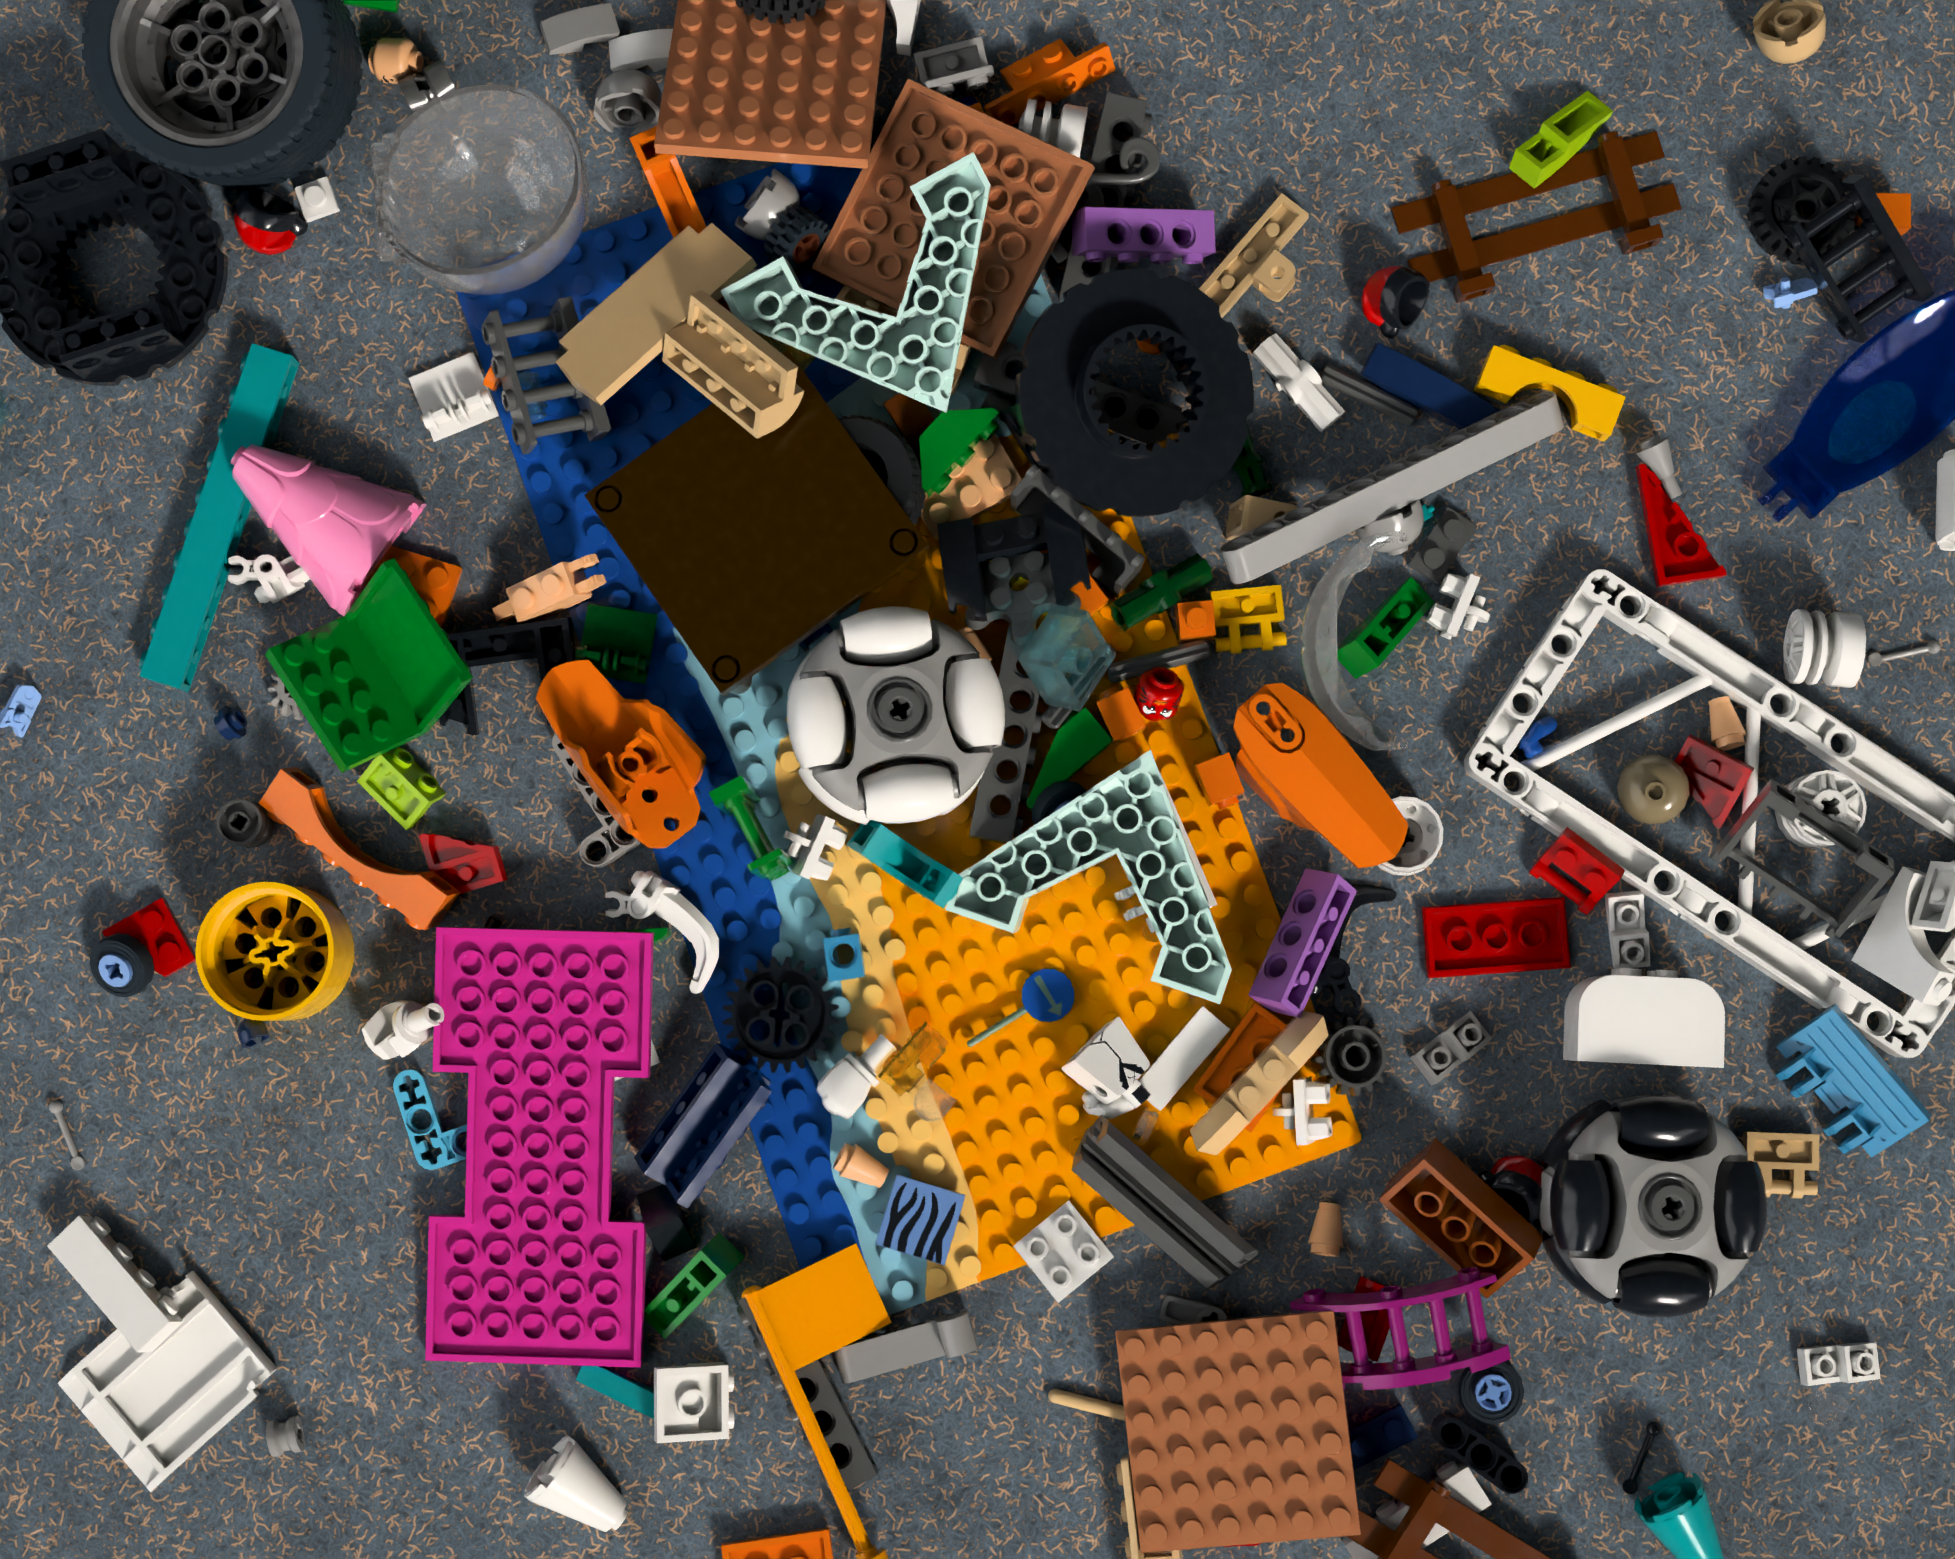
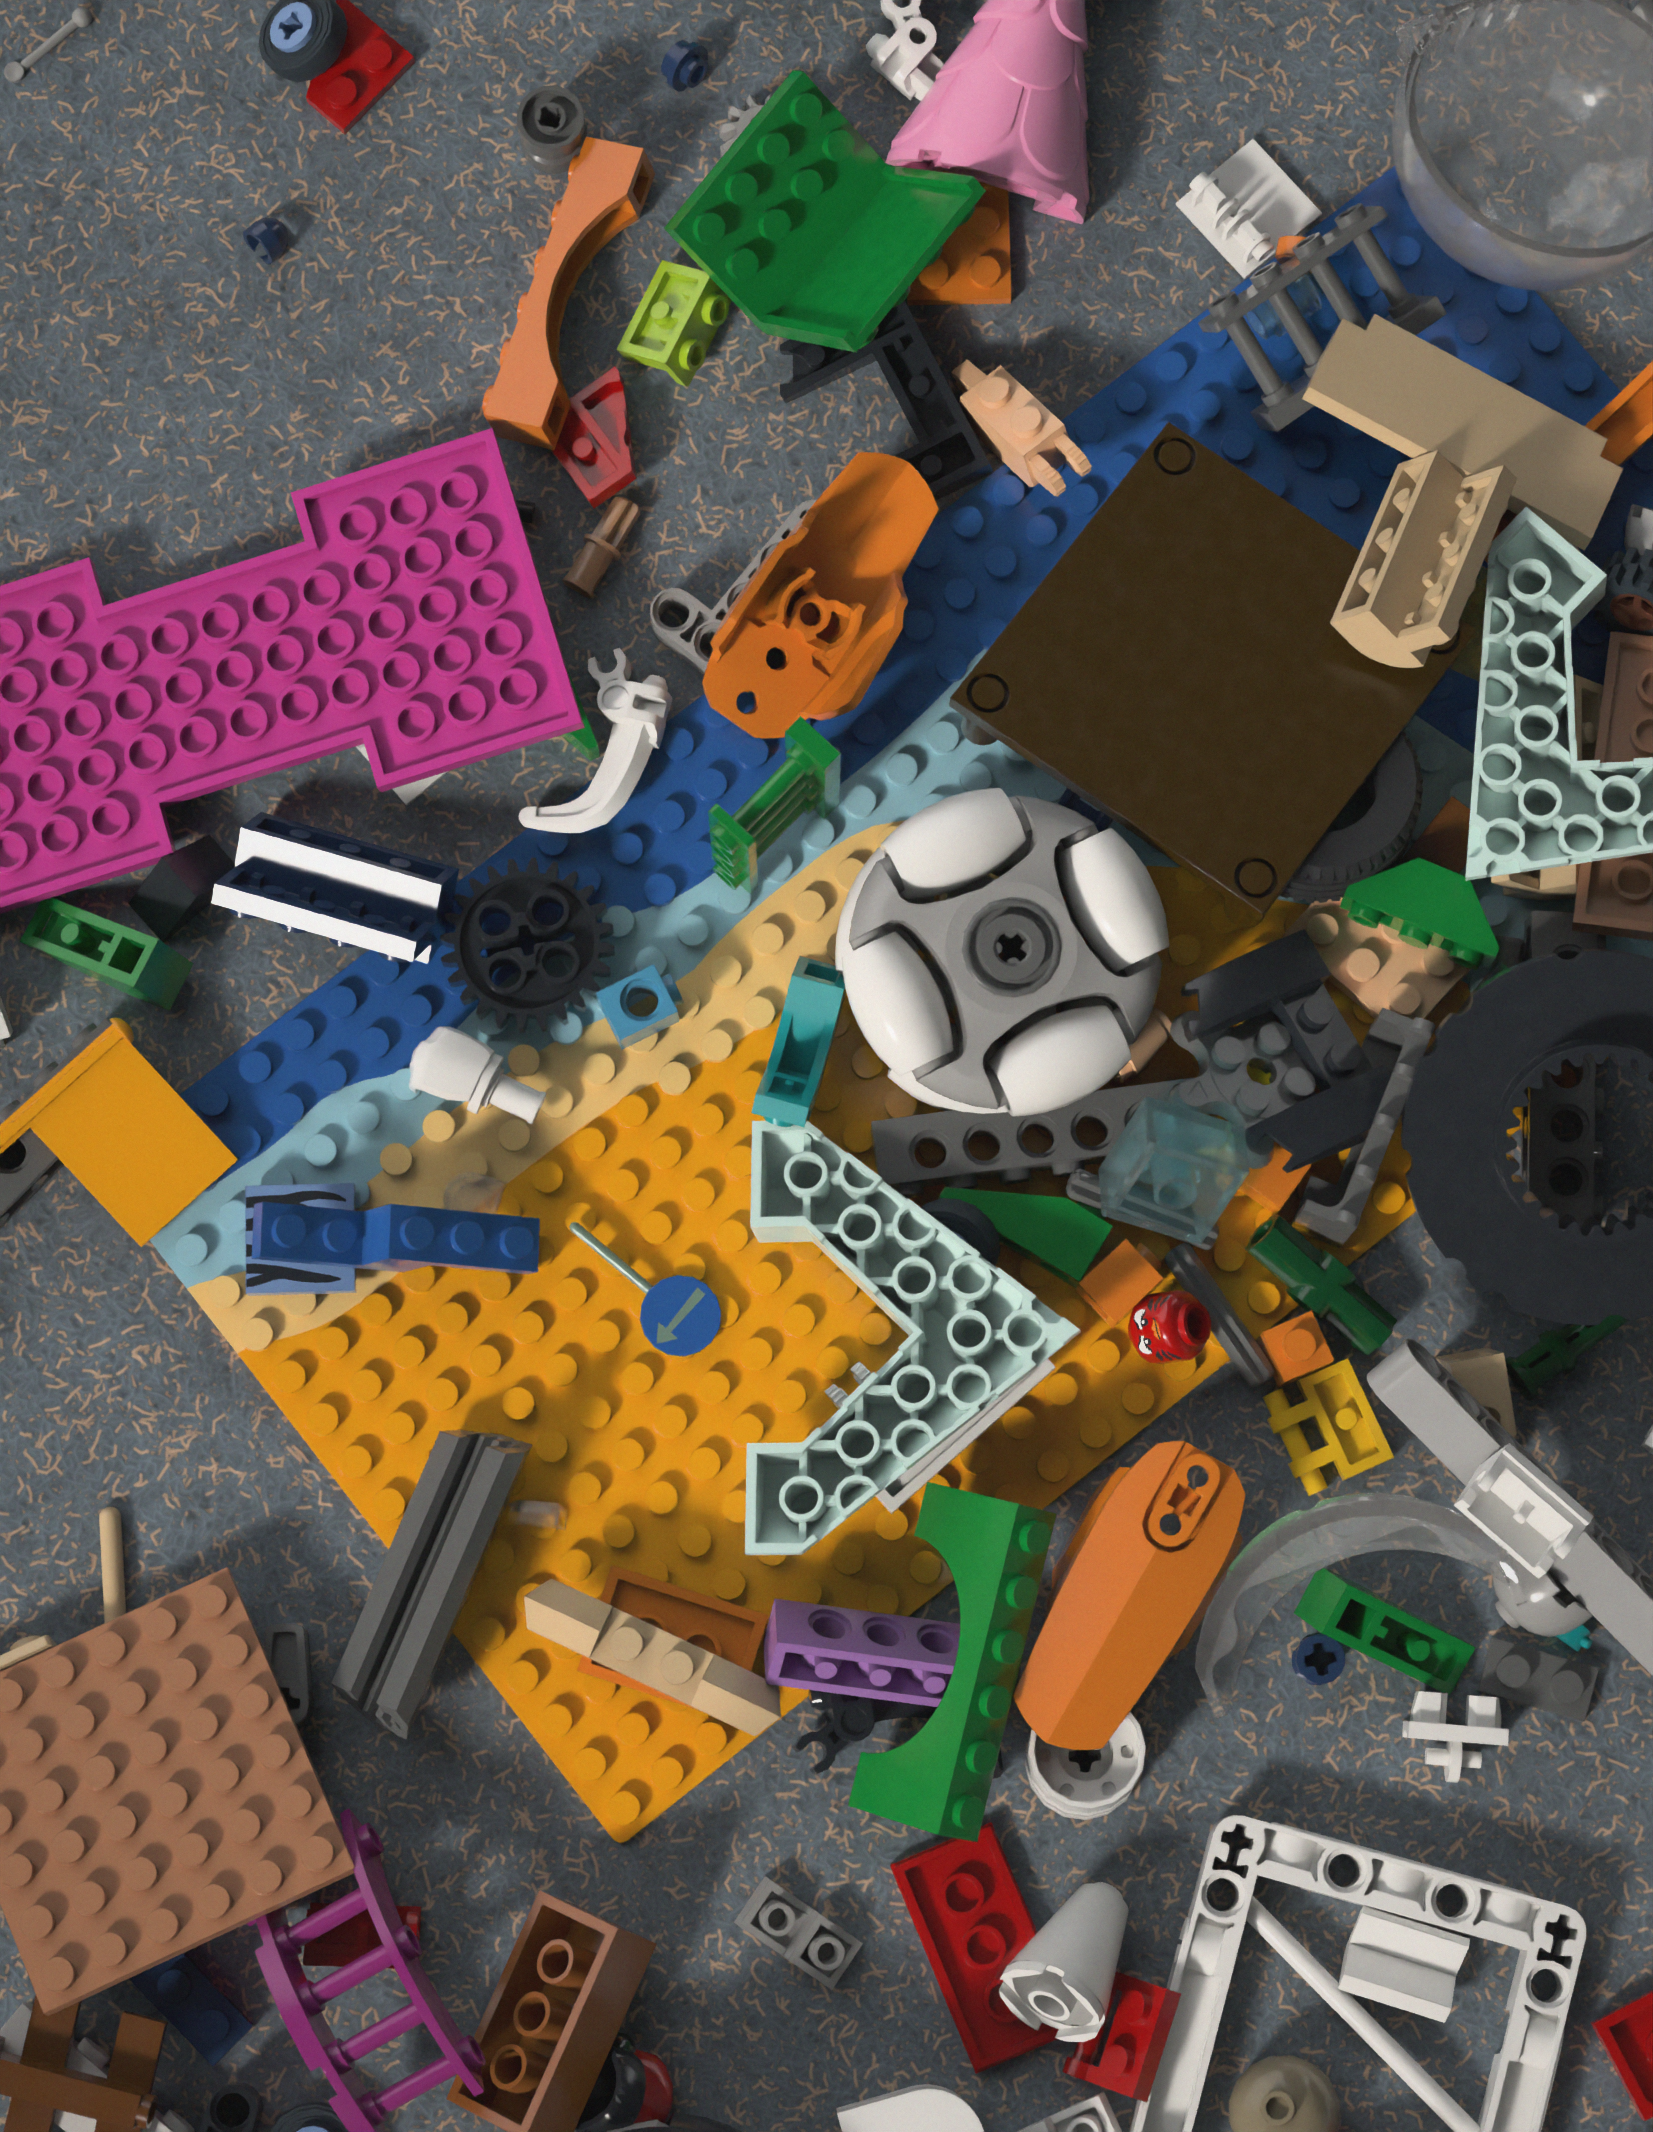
camera: 65 degrees right, 5 degrees down
(222, 940) = (386, 151): yellow wheel -> none
(401, 1027) = (337, 431): white piece -> none
(445, 1140) = (201, 547): medium azure beam -> none
(533, 882) = (602, 546): none -> medium nougat axle
(618, 642) = (978, 545): dark green hinge -> none
(809, 861) = (806, 917): white hips -> none
(860, 1166) = (348, 1128): light nougat cone -> none
(901, 1069) = (548, 1158): clear yellow hinge -> none
(907, 1346) = (114, 1280): light grey beam -> none
(943, 1159) = (395, 1238): none -> blue bracket
(1063, 1251) = (319, 1458): white hinge -> none
(1109, 1111) = (545, 1452): white arm -> none
(1111, 1065) = (607, 1434): white torso -> none
(1182, 1057) = (652, 1537): white tile -> none
(1219, 781) = (1073, 1459): orange brick -> none
(1273, 849) = (947, 1768): none -> green arch
(1305, 1095) = (632, 1733): white hips -> none
(1326, 1233) = (470, 1834): light nougat cone -> none
(1350, 516) = (1523, 1510): none -> white hinge
(1370, 1057) = (745, 1815): dark grey gear -> none
(1398, 668) = (1326, 1645): none -> dark blue bush
(1527, 887) = (1070, 1965): none -> white cone
(1536, 731) = (1309, 1906): blue arm -> none
(1588, 687) = (1402, 1963): none -> white panel

